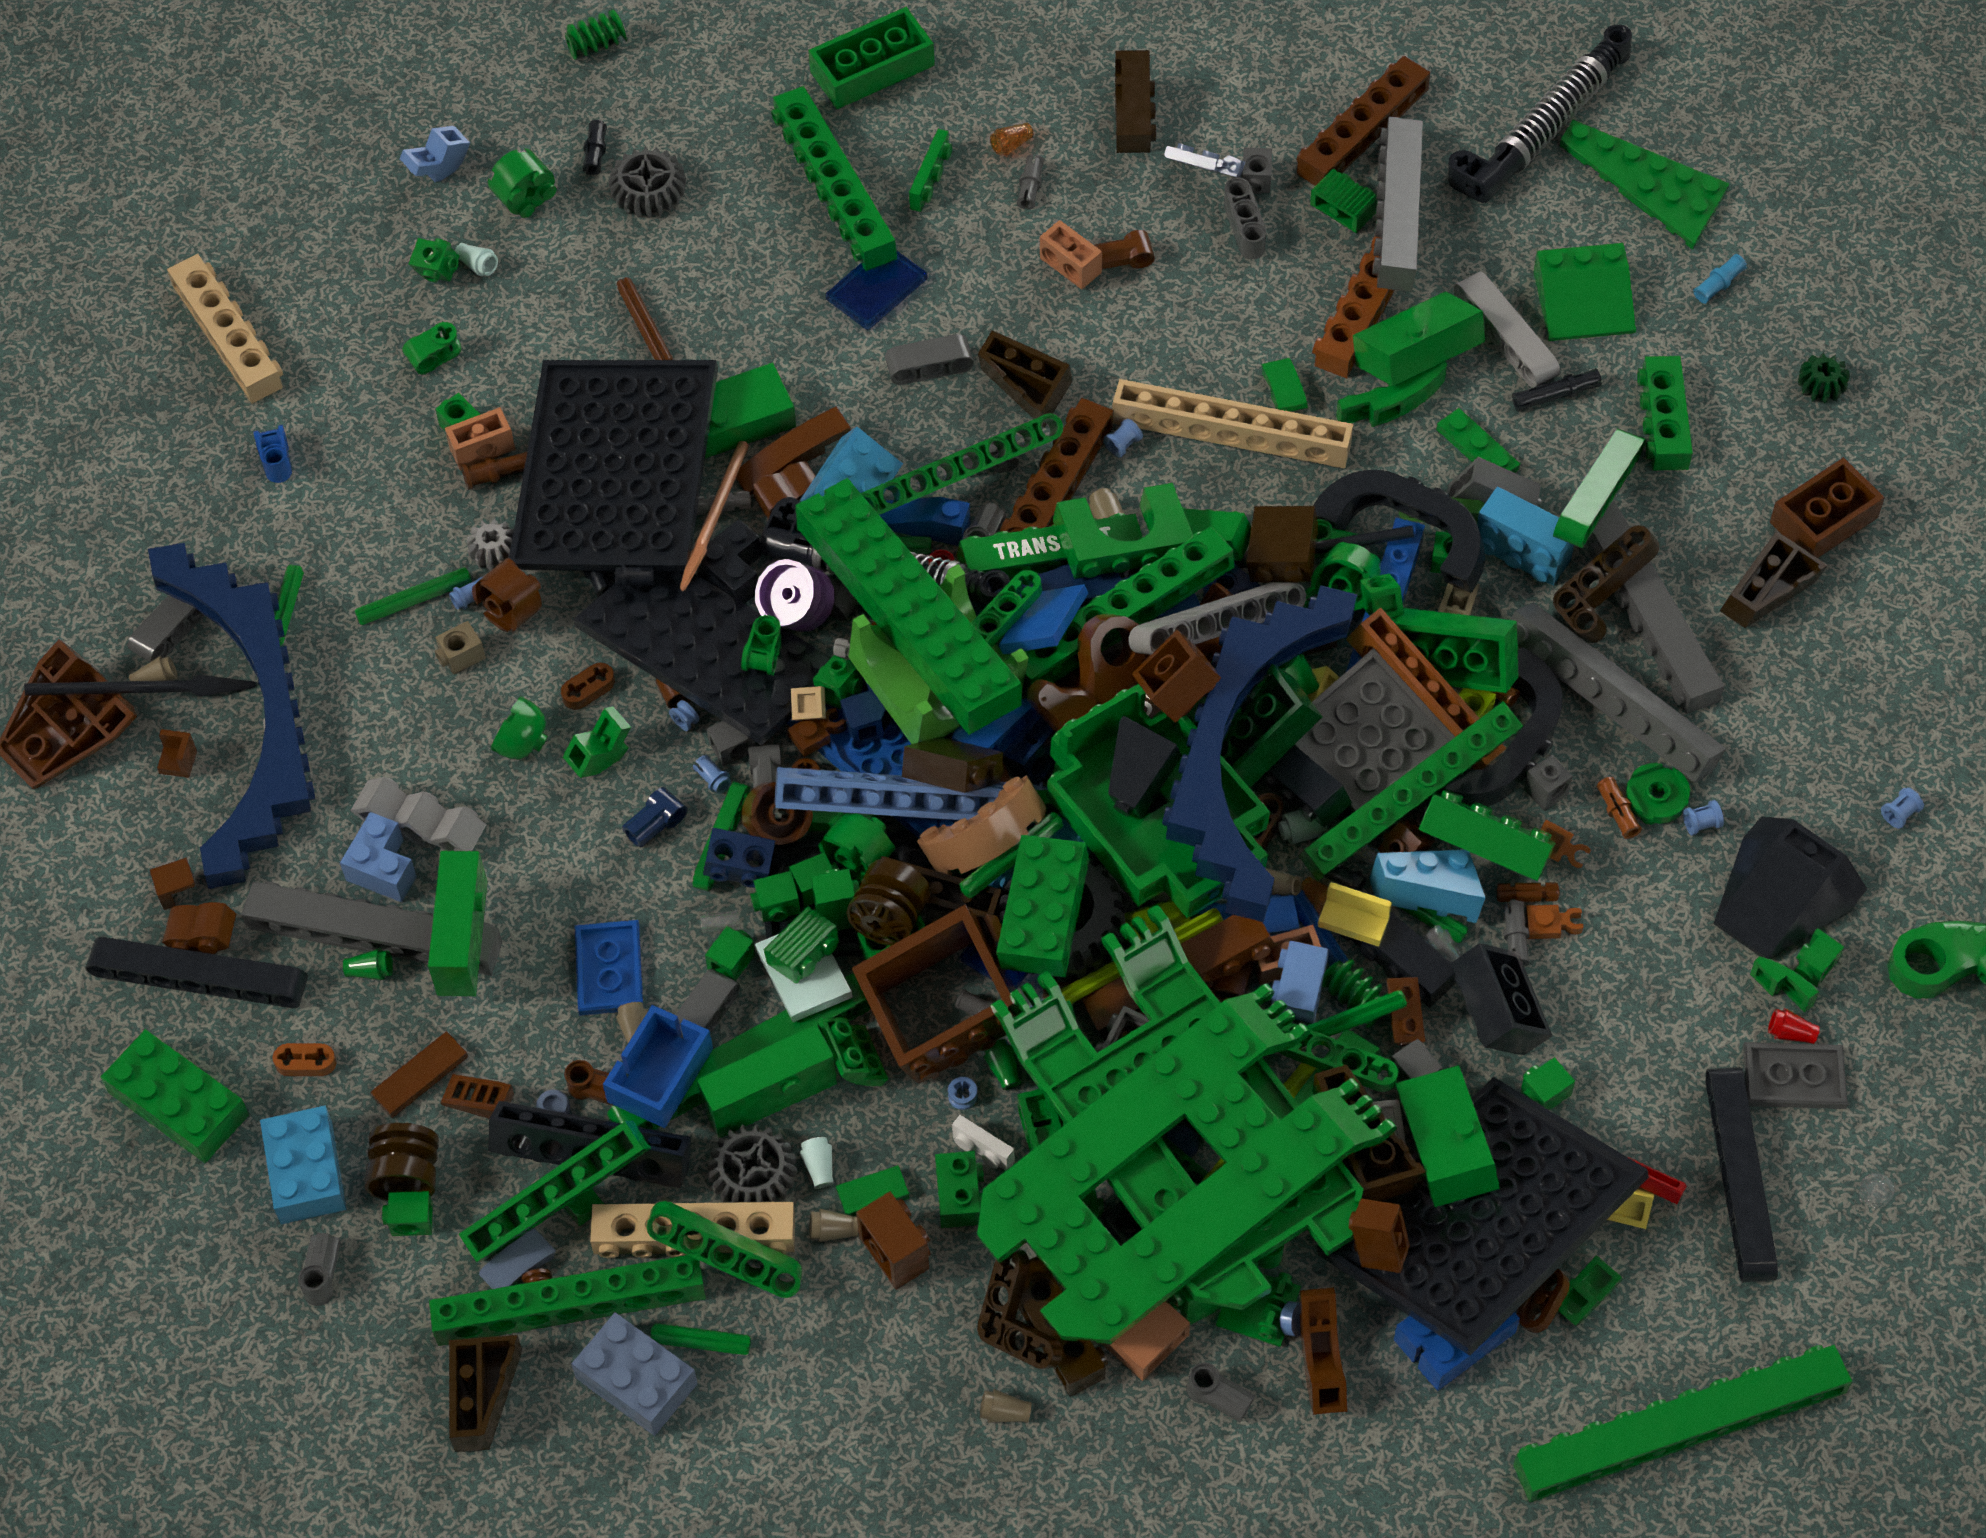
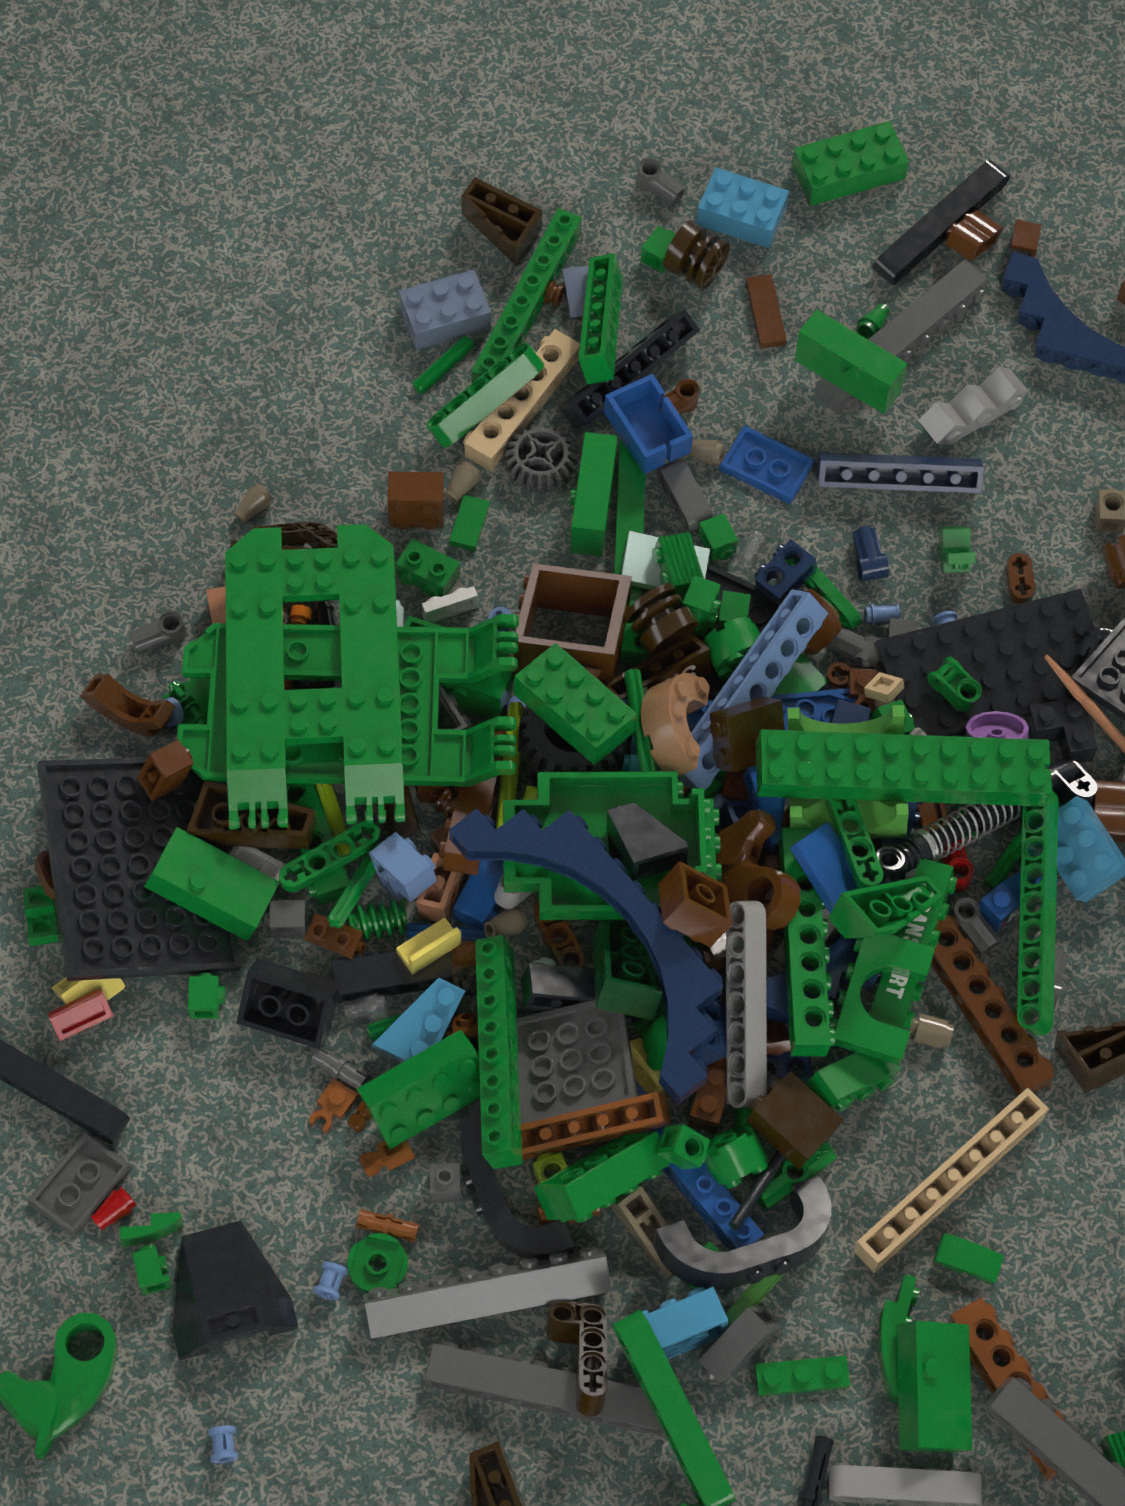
camera: 120 degrees right, 5 degrees up
(304, 1059) = (831, 255): dark orange beam -> none
(374, 859) = (953, 361): medium blue brick -> none
(502, 1090) = (711, 349): reddish brown slope -> none
(521, 731) = (1003, 506): green cylinder -> none
(544, 837) = (900, 472): none -> dark blue brick
(554, 1100) = (679, 371): sand blue tile -> none
(775, 897) = (736, 577): green brick -> none
(818, 1161) = (517, 501): light aqua cone -> none
(853, 1052) = (579, 551): green slope -> none
(1061, 548) = (883, 907): none -> green wedge
(1123, 437) = (997, 1091): medium blue bush -> none

